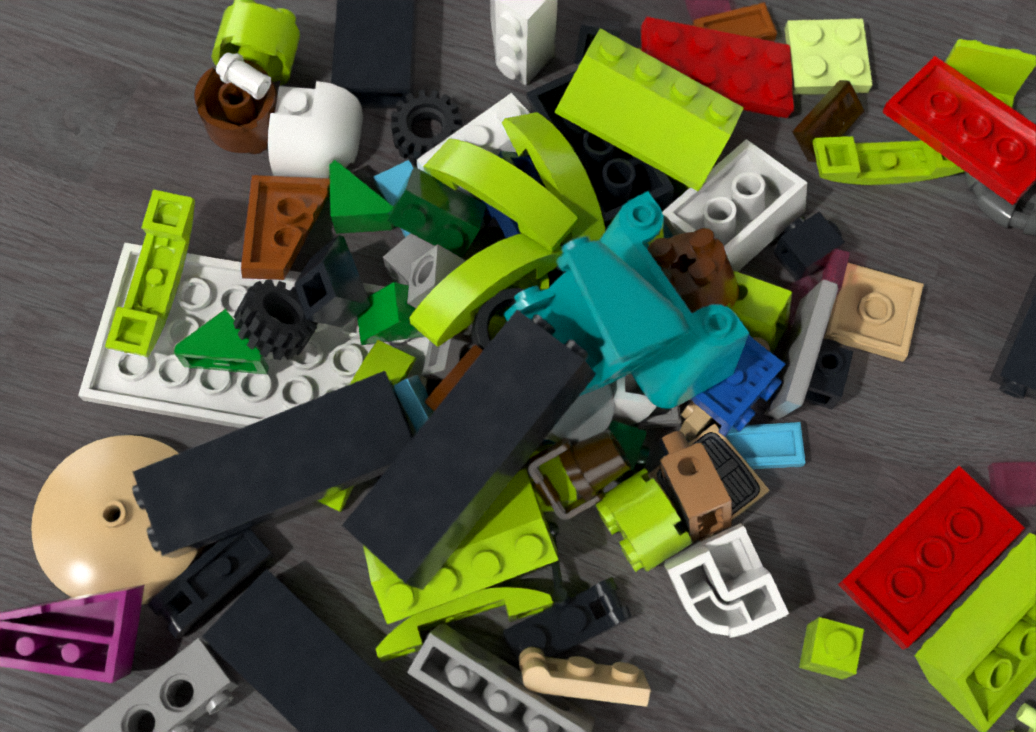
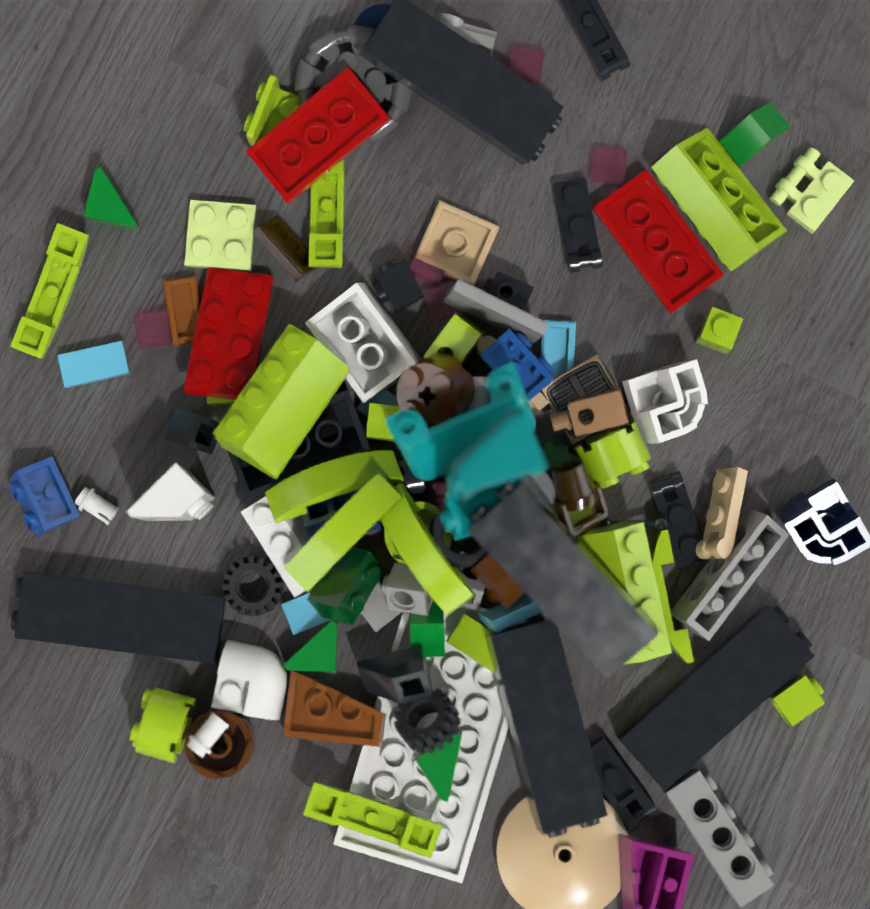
camera: 85 degrees left, 15 degrees up
(931, 452) = (577, 224): none -> black plate

